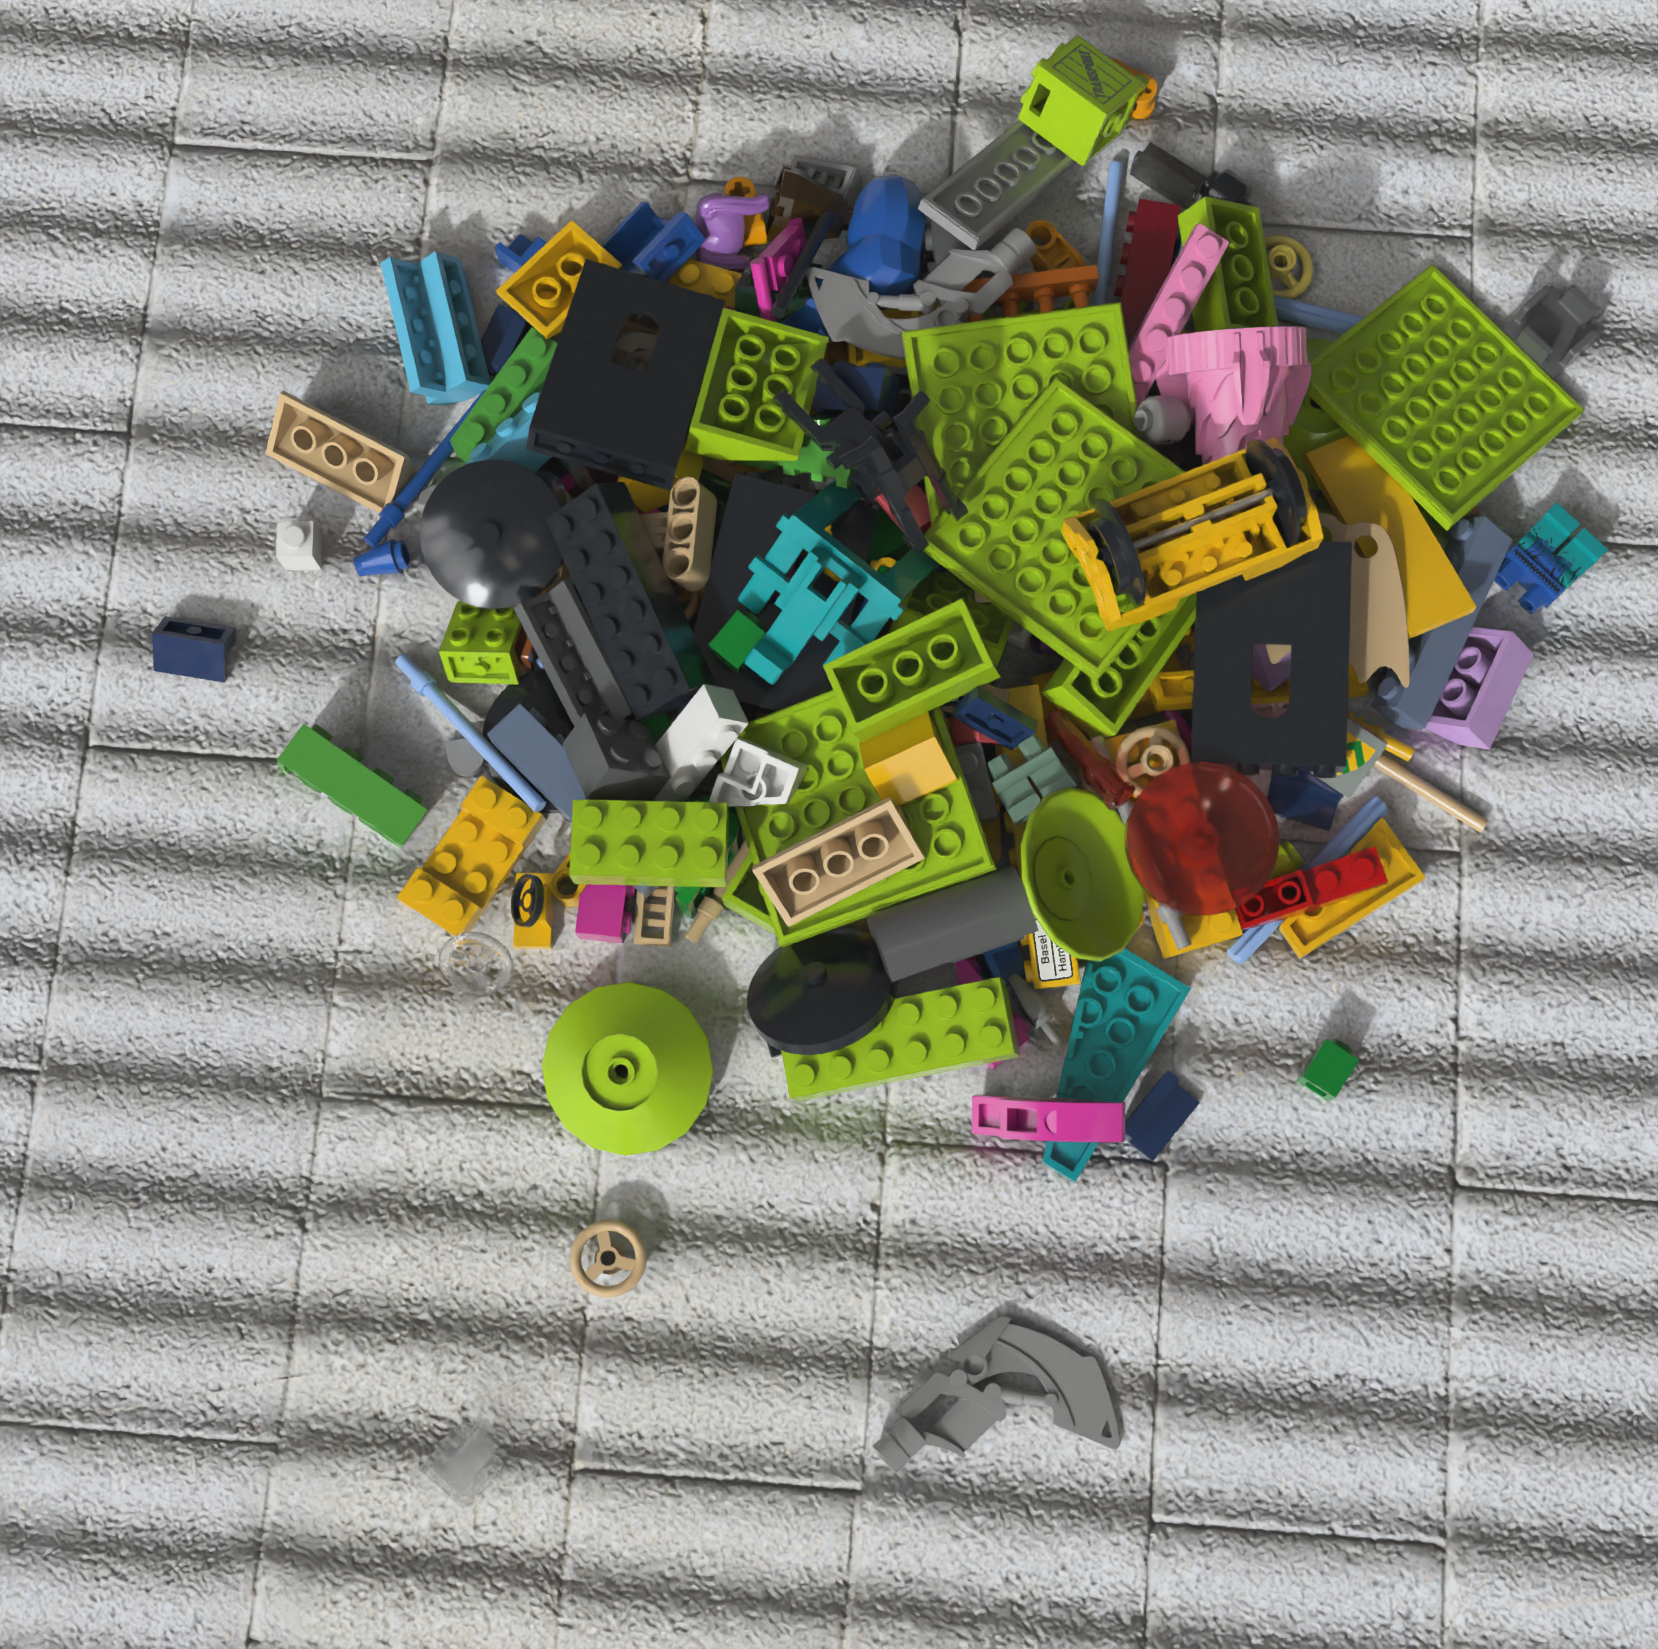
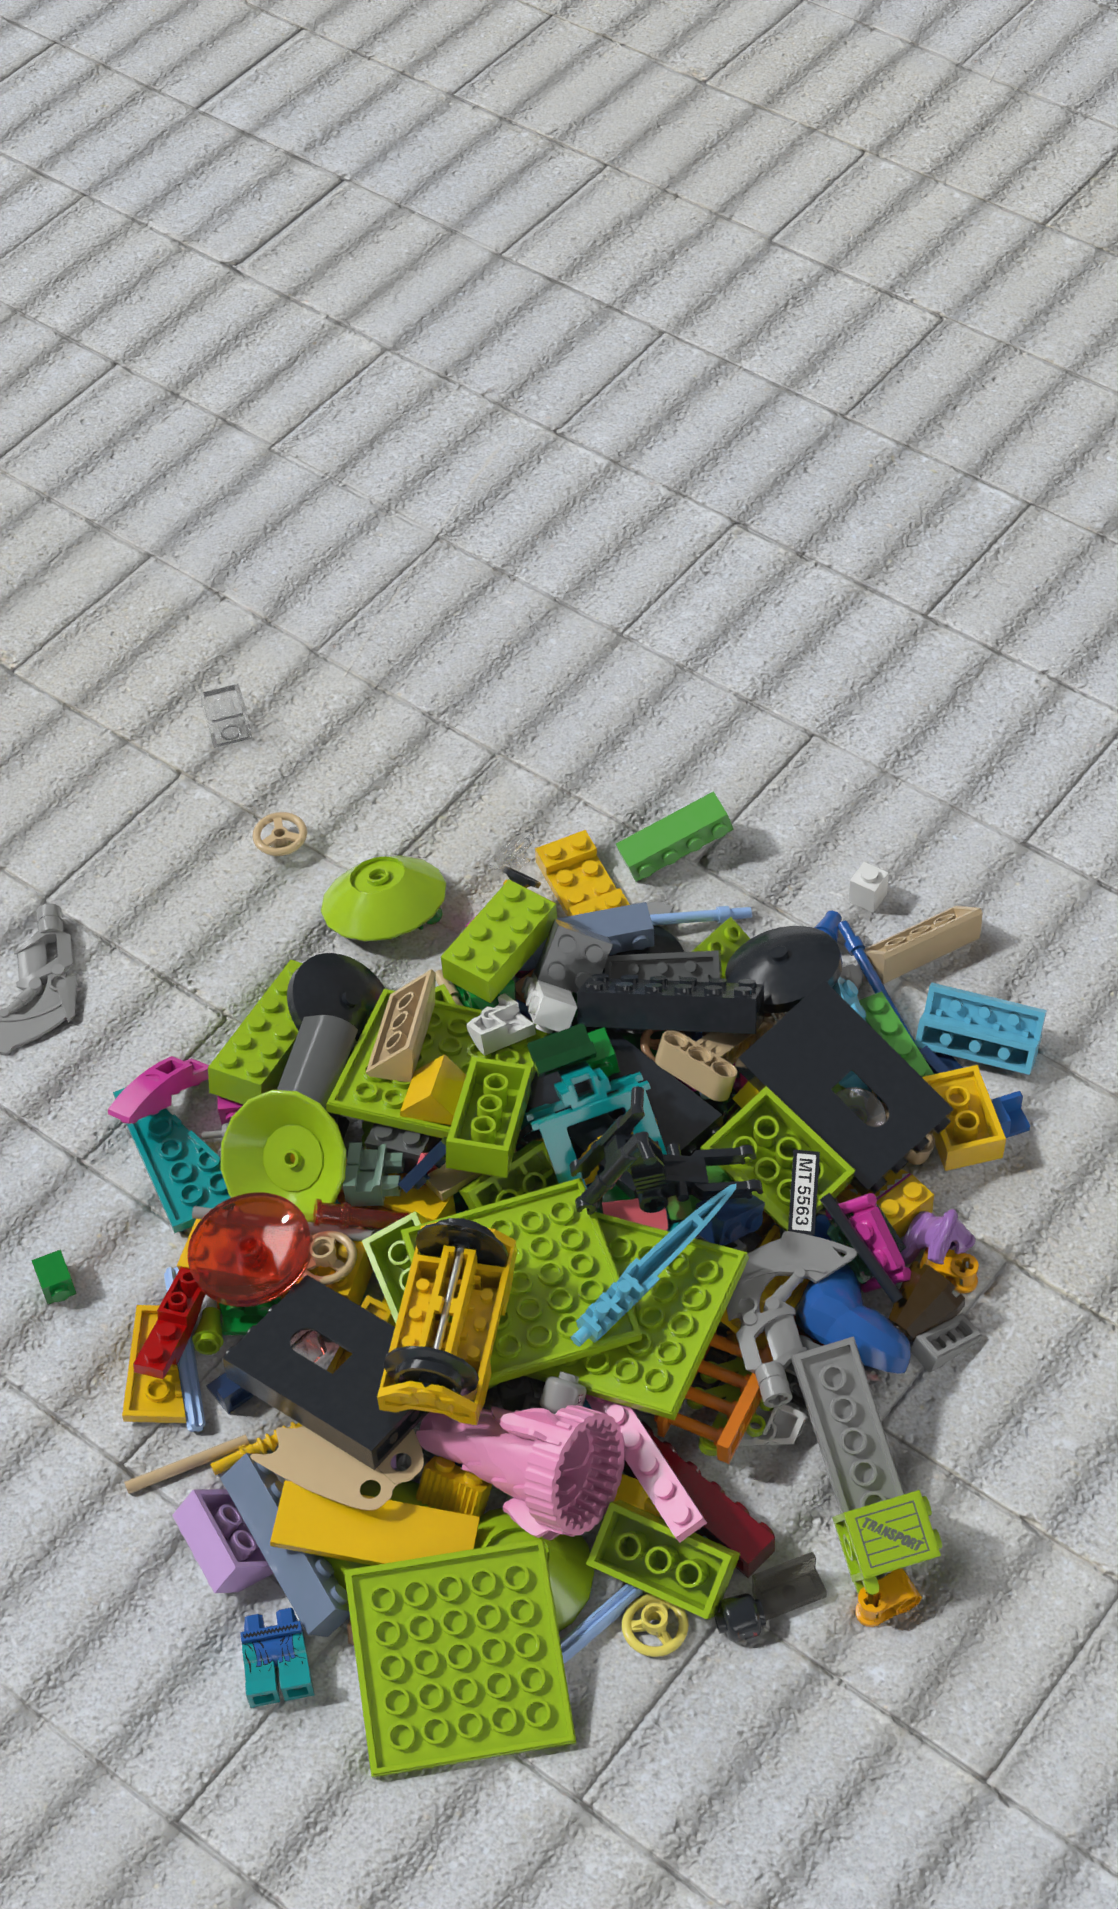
camera: 125 degrees right, 25 degrees down
(192, 648) = (841, 807): dark blue panel -> none
(653, 244) = (955, 1185): blue panel -> none
(778, 342) = (804, 1192): none -> sticker
(782, 649) = (561, 1050): none -> dark green panel
(1000, 398) = (643, 1273): none -> medium azure piece
(1057, 251) = (773, 1459): light orange piece -> none
(1108, 232) = (749, 1500): light blue bar -> none
(1159, 1116) = (113, 1167): dark blue panel -> none
(1361, 754) = (241, 1415): light grey piece -> none
(1554, 328) = (452, 1796): dark grey panel -> none

